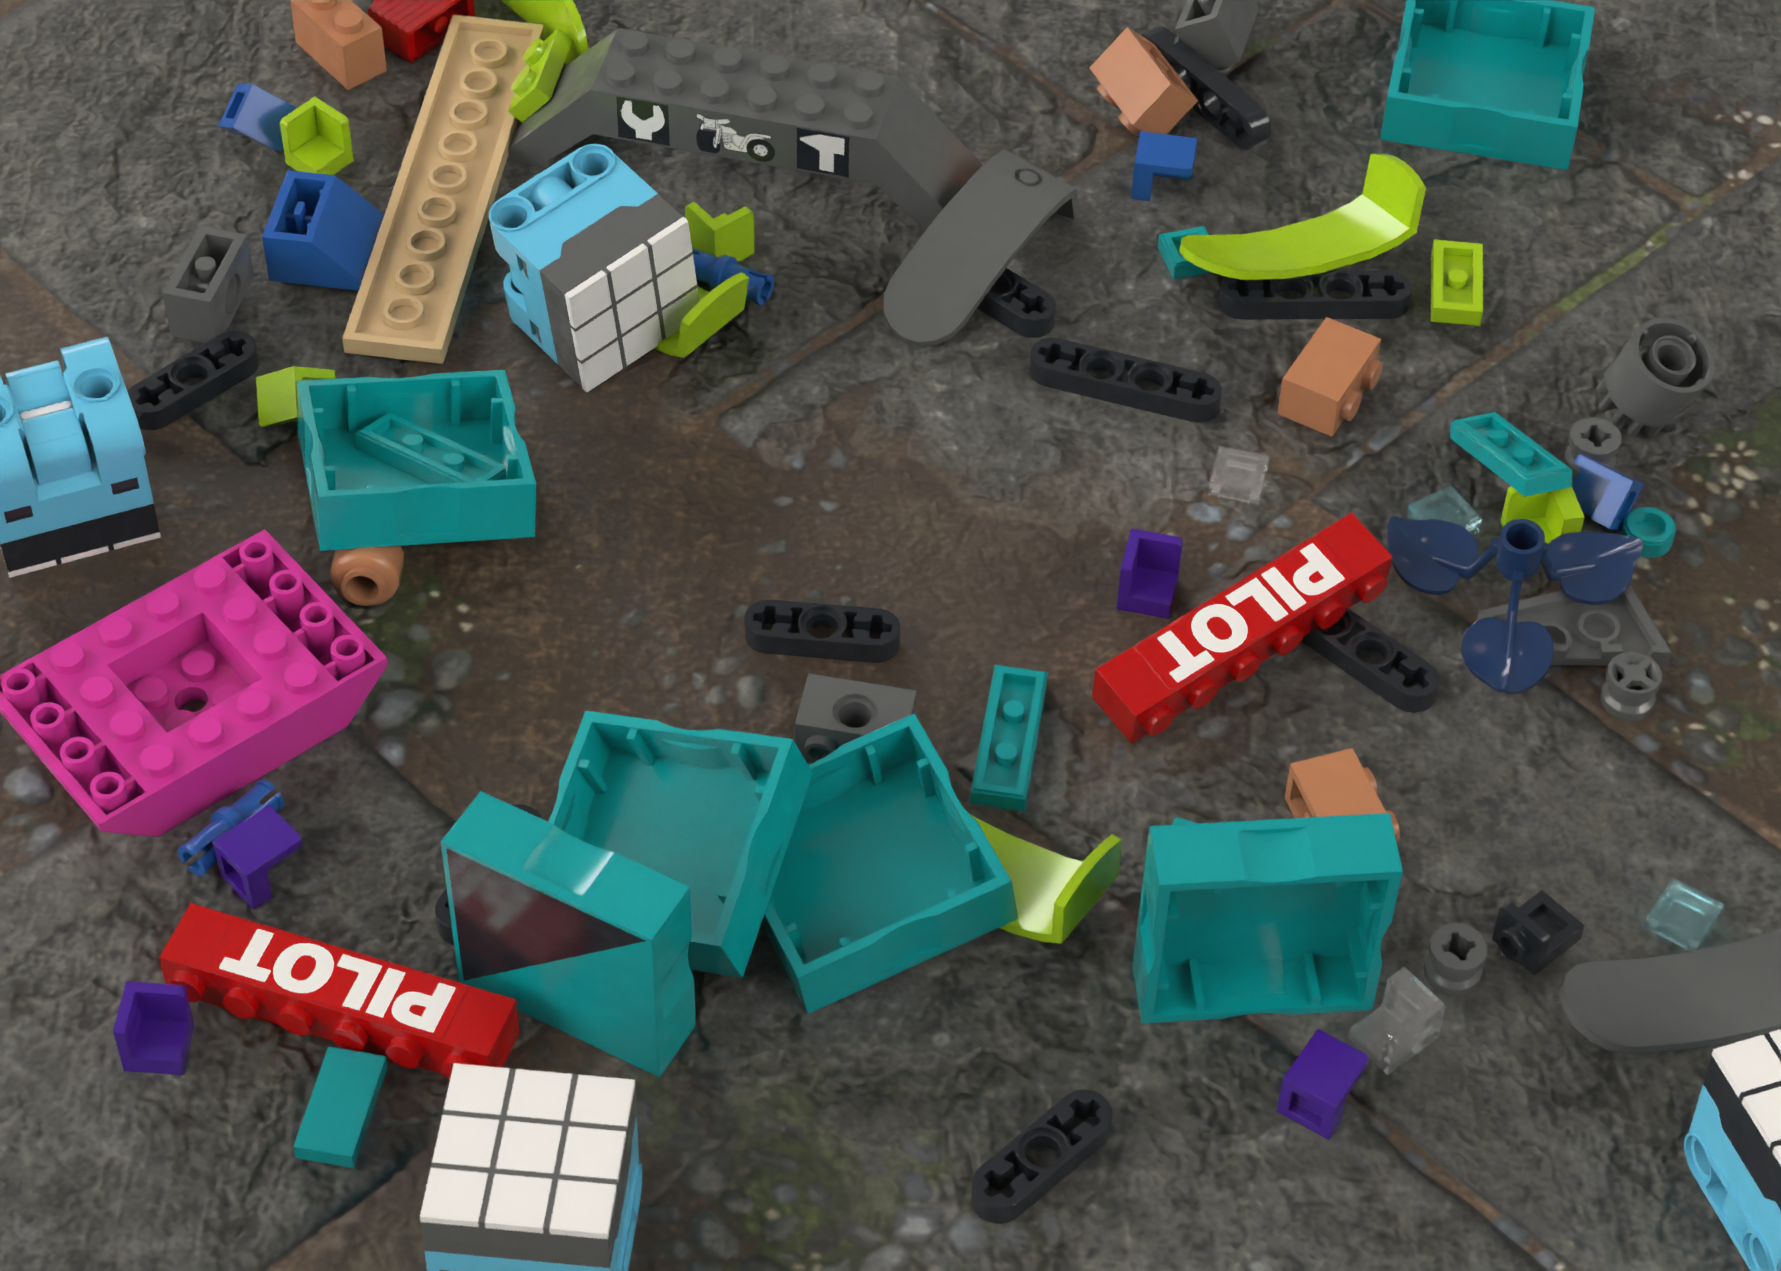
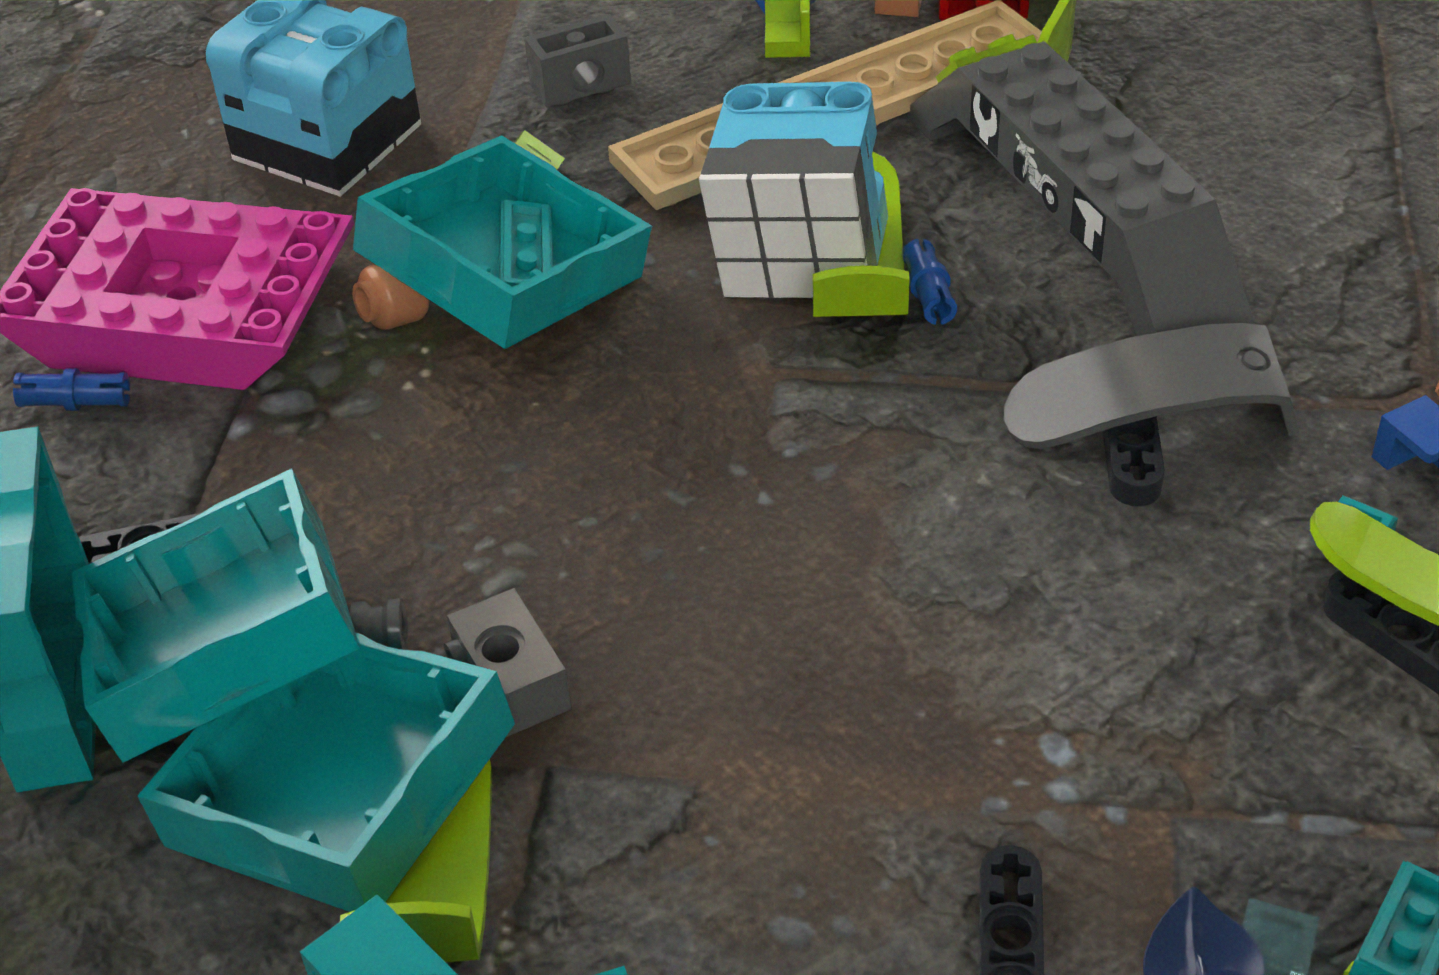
camera: 55 degrees right, 5 degrees down
(223, 362) = (471, 116): black beam -> none
(251, 850) = (48, 407): dark purple panel -> none
(320, 232) = (690, 67): blue slope -> none
(723, 234) = (965, 253): lime panel -> none
(806, 615) = (611, 600): black beam -> none
(1009, 738) = (612, 780): teal tile -> none
(1122, 386) = (1147, 582): black beam -> none
(1149, 573) = (905, 747): dark purple panel -> none
(1238, 475) = (1125, 740): clear tile -> none
(1241, 628) = (910, 859): red brick -> none
(1330, 377) = (1330, 723): nougat brick -> none

